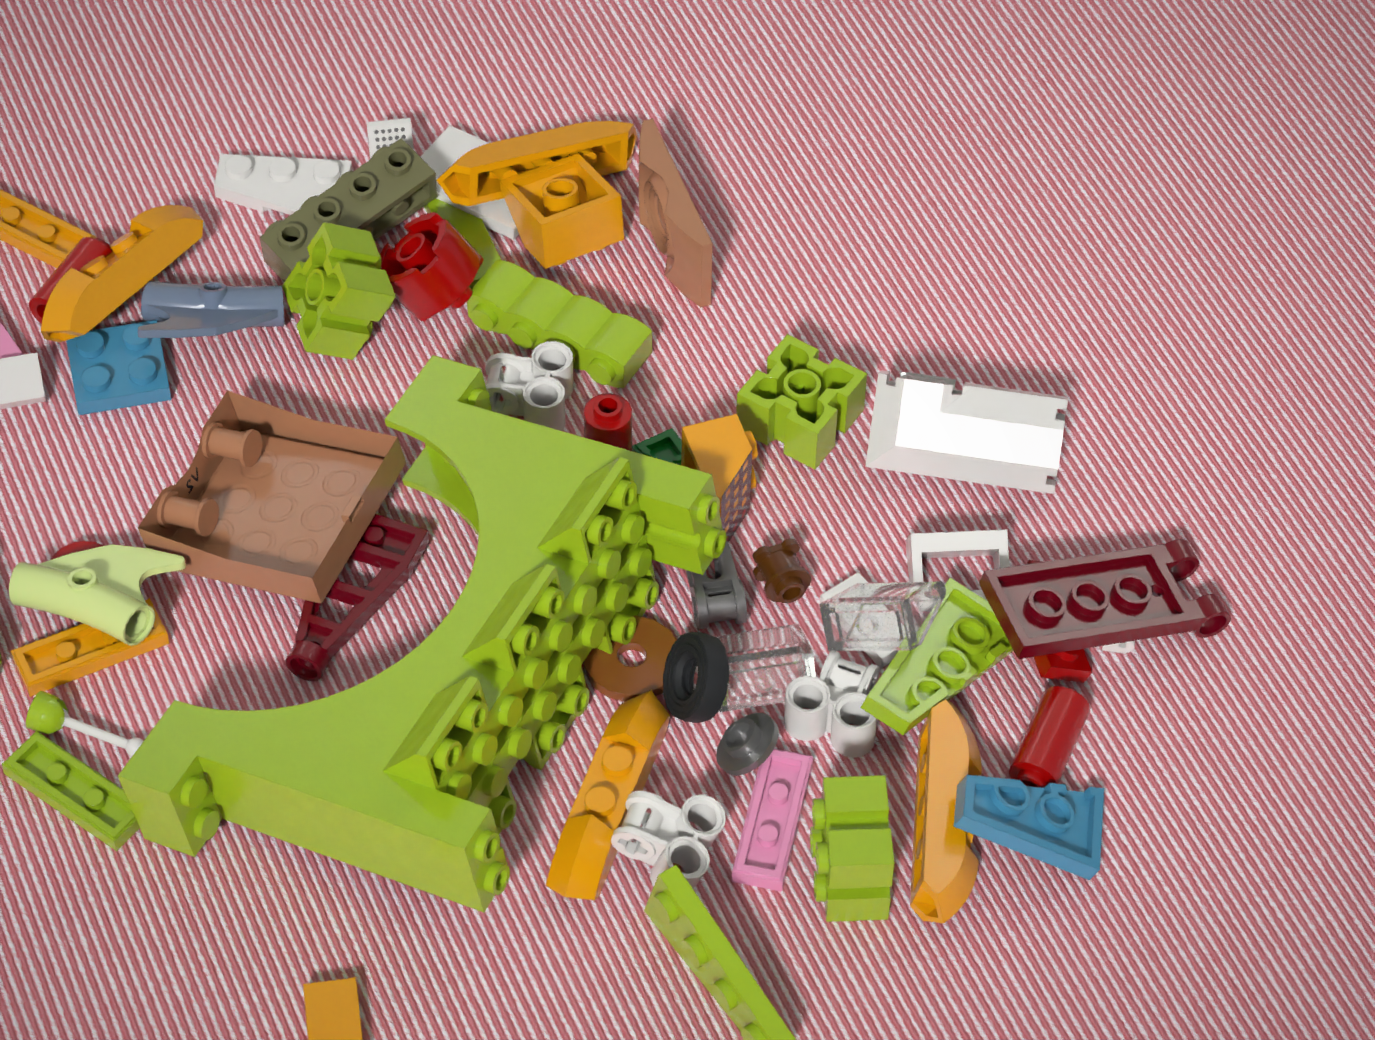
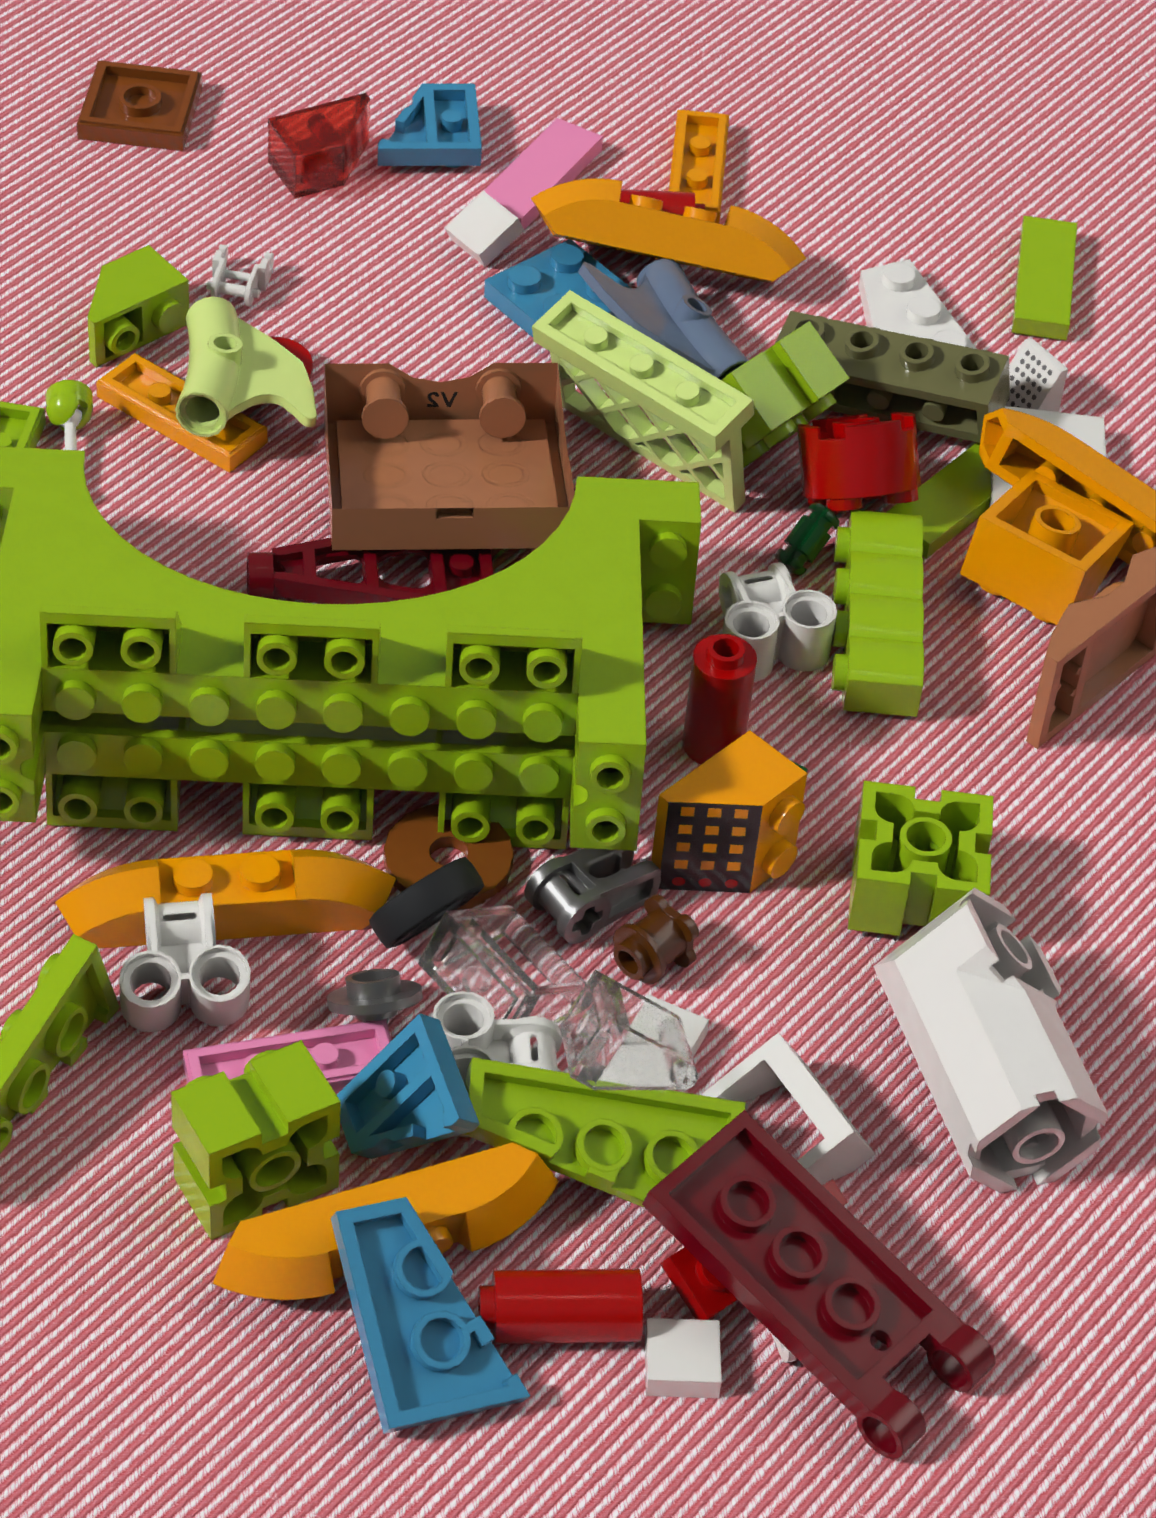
camera: 60 degrees right, 5 degrees down
(283, 91) = (1044, 278): none -> lime tile
(317, 336) = (664, 384): none -> yellowish green fence
(466, 333) = (807, 538): none -> dark green piece
(863, 740) = (407, 1094): none -> dark azure wing
(1109, 699) = (682, 1358): none -> white tile

